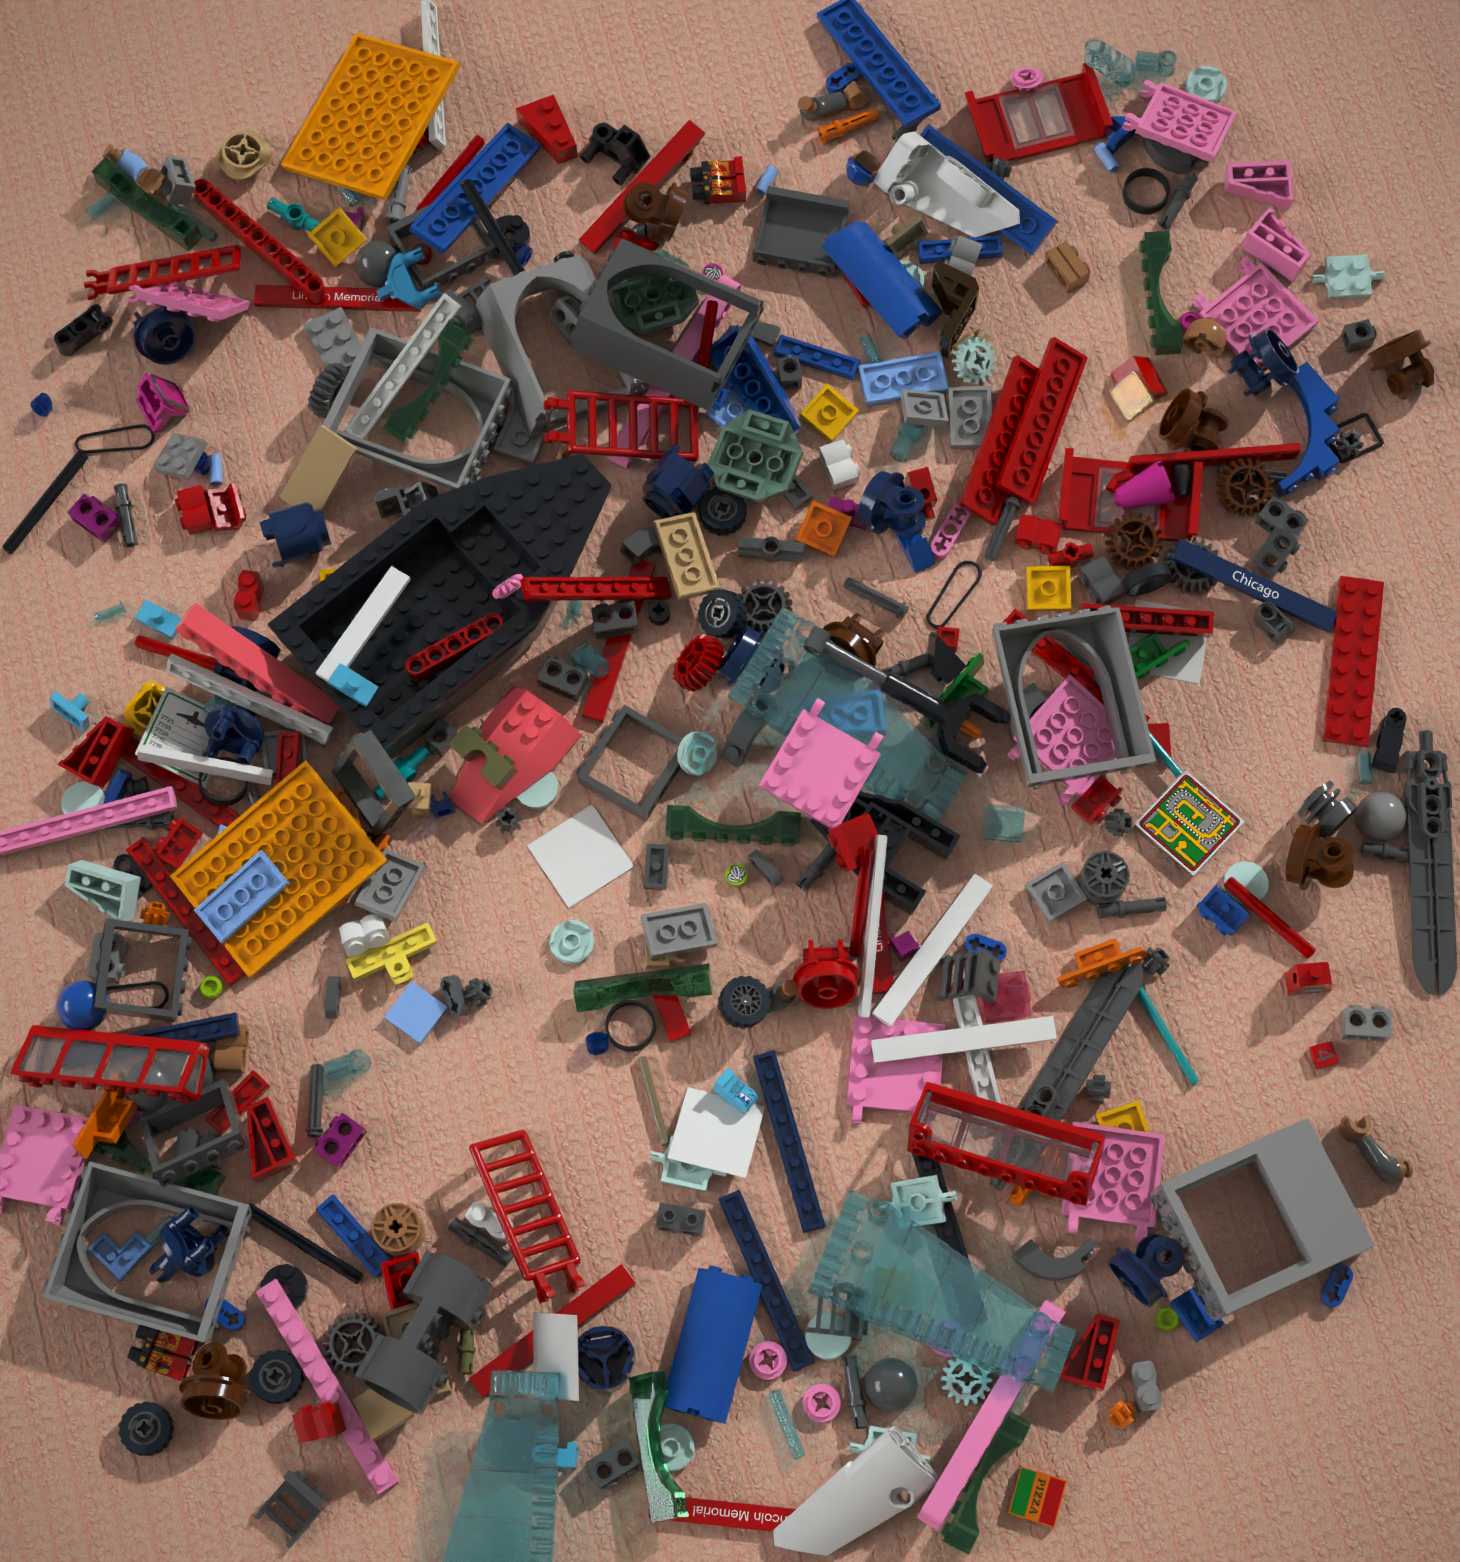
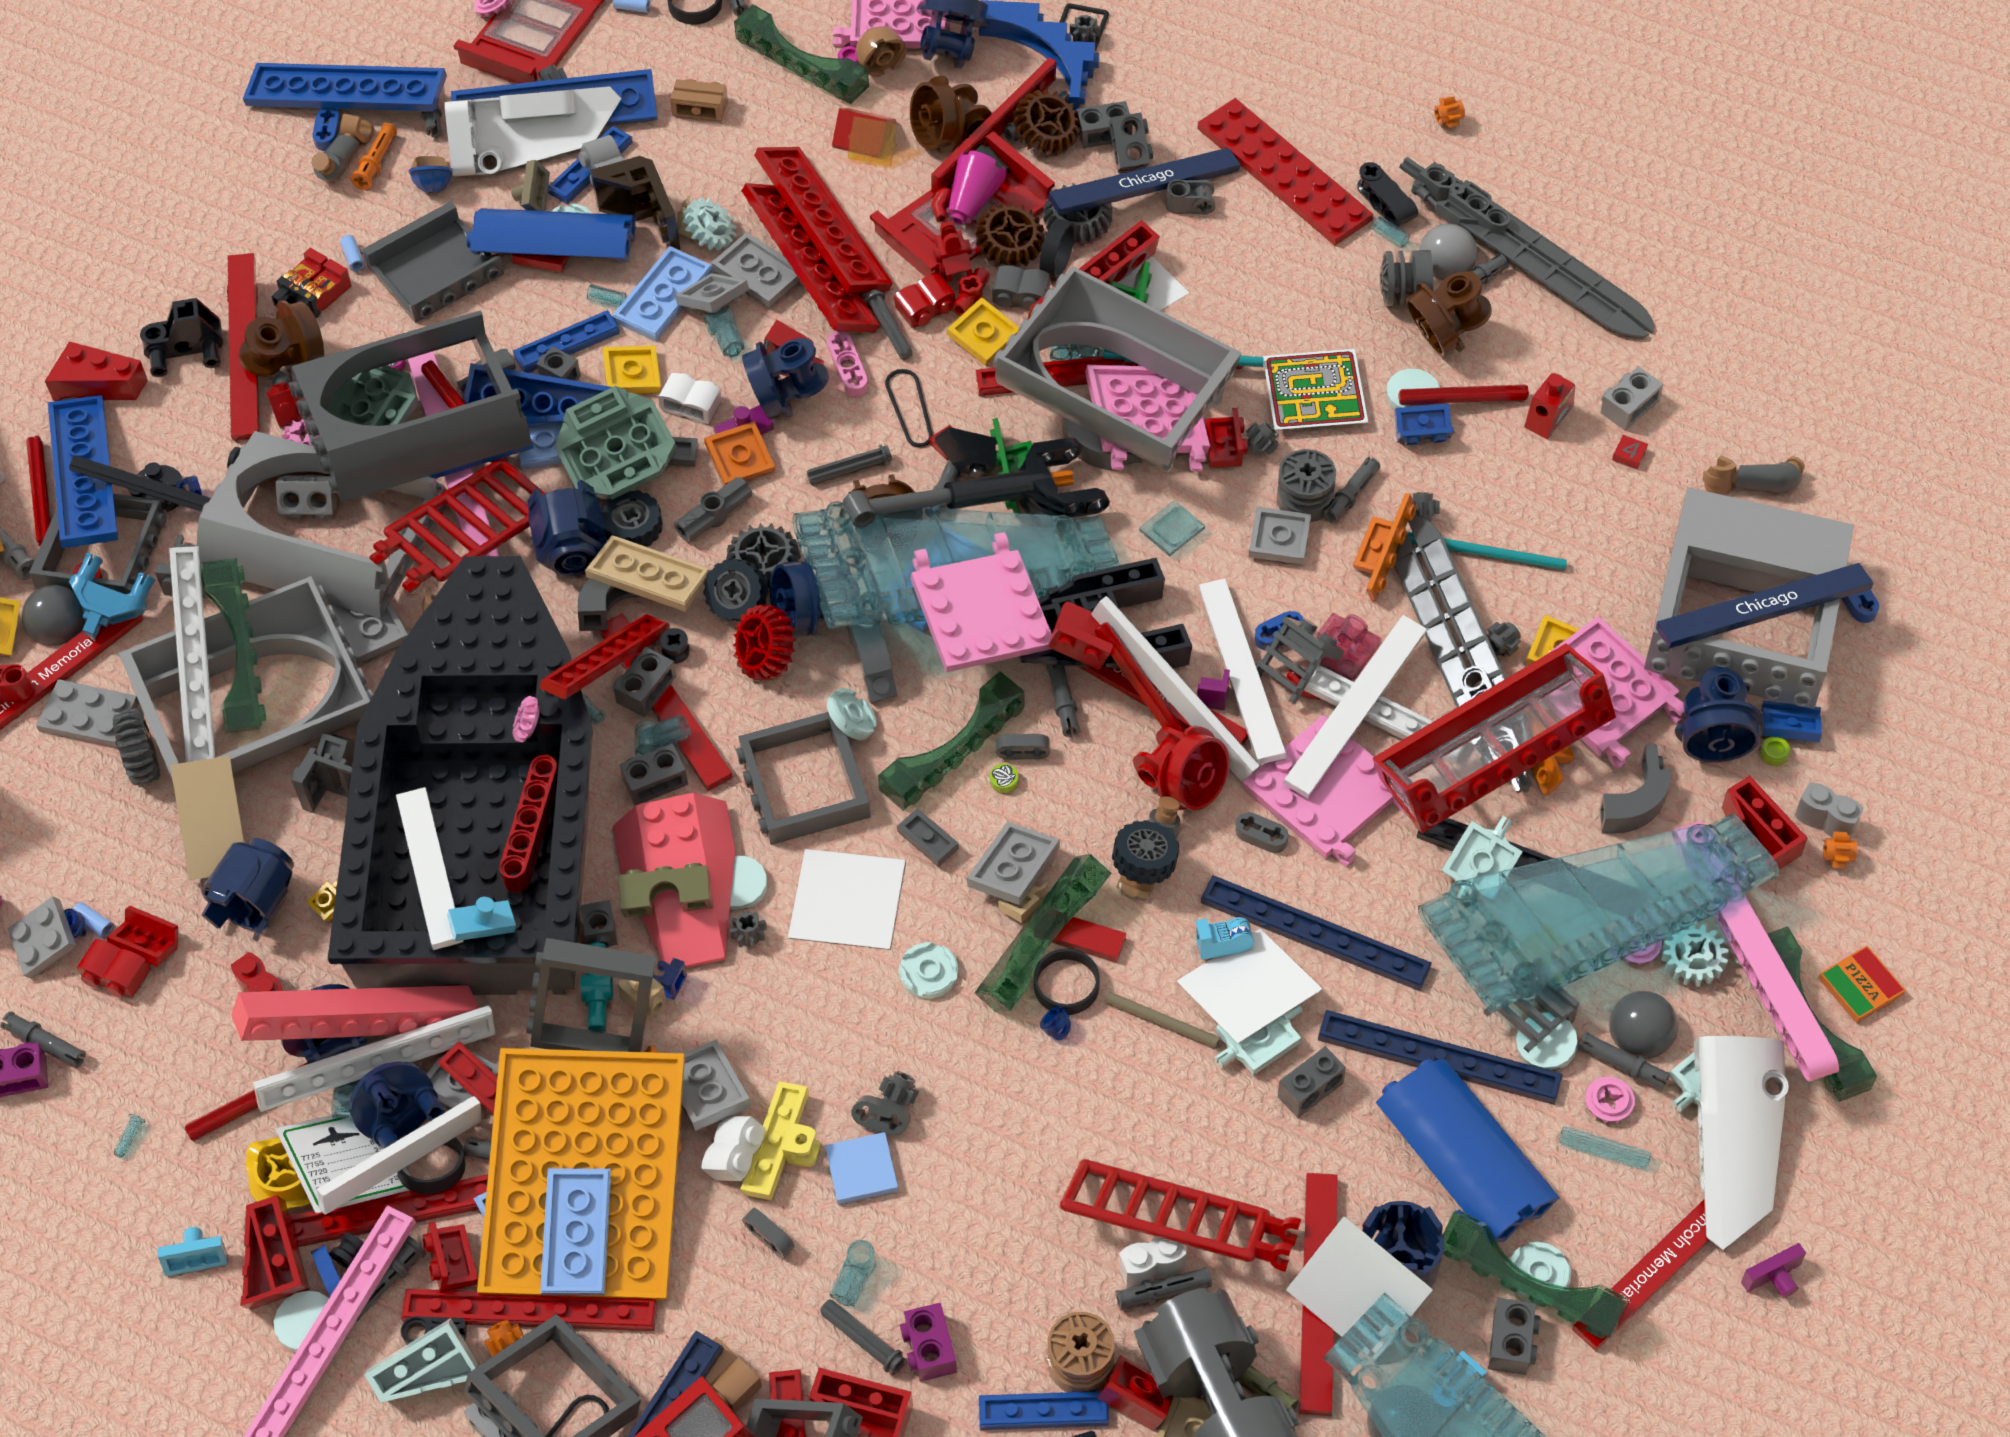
camera: 50 degrees left, 15 degrees down
(158, 619) = (188, 1094): medium azure tile -> none
(211, 987) = (637, 1348): lime tile -> none
(757, 1356) = (1536, 1109): bright pink gear -> none
(835, 1052) = (1261, 832): none -> dark grey beam
(917, 551) = (837, 402): blue slope -> none
(1083, 521) = (952, 251): none -> red hinge
(1246, 1237) = (1764, 605): none -> dark blue tile

